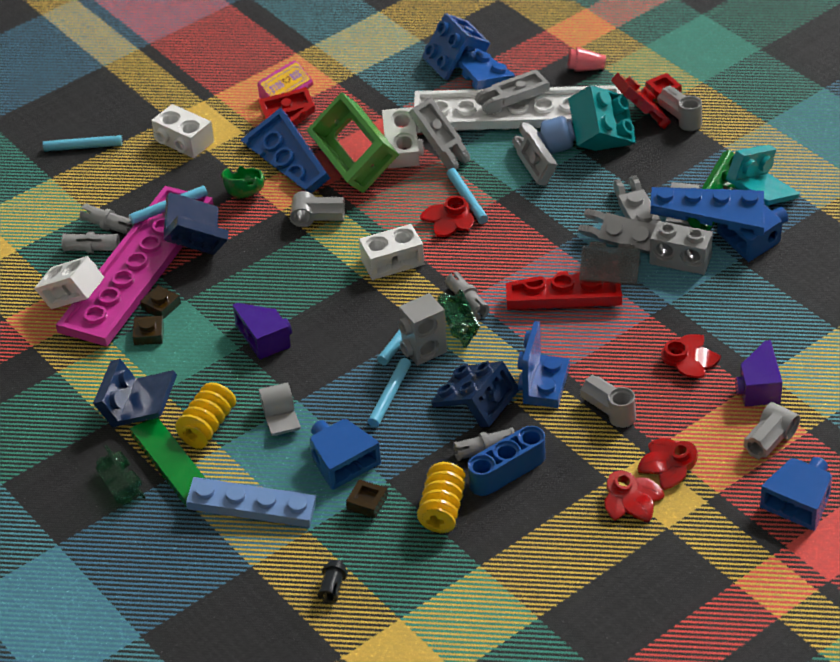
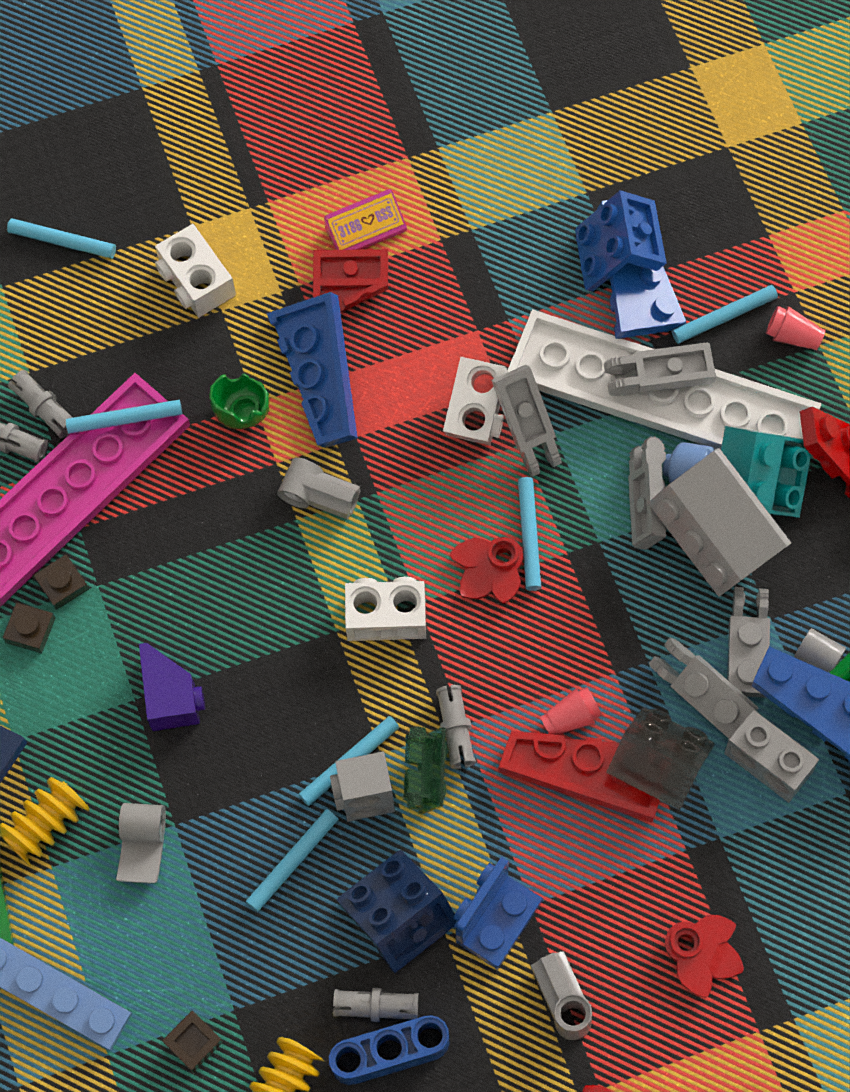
camera: 20 degrees right, 25 degrees up
(193, 224) = (141, 467): dark blue bracket -> none
(325, 132) = (381, 392): bright green piece -> none
(343, 451) = (188, 948): blue torso -> none
(542, 264) = (572, 713): none -> coral cone
(547, 60) = (724, 314): none -> medium azure bar
(588, 141) = (719, 522): none -> light grey slope
(760, 377) = (776, 1035): dark purple slope -> none

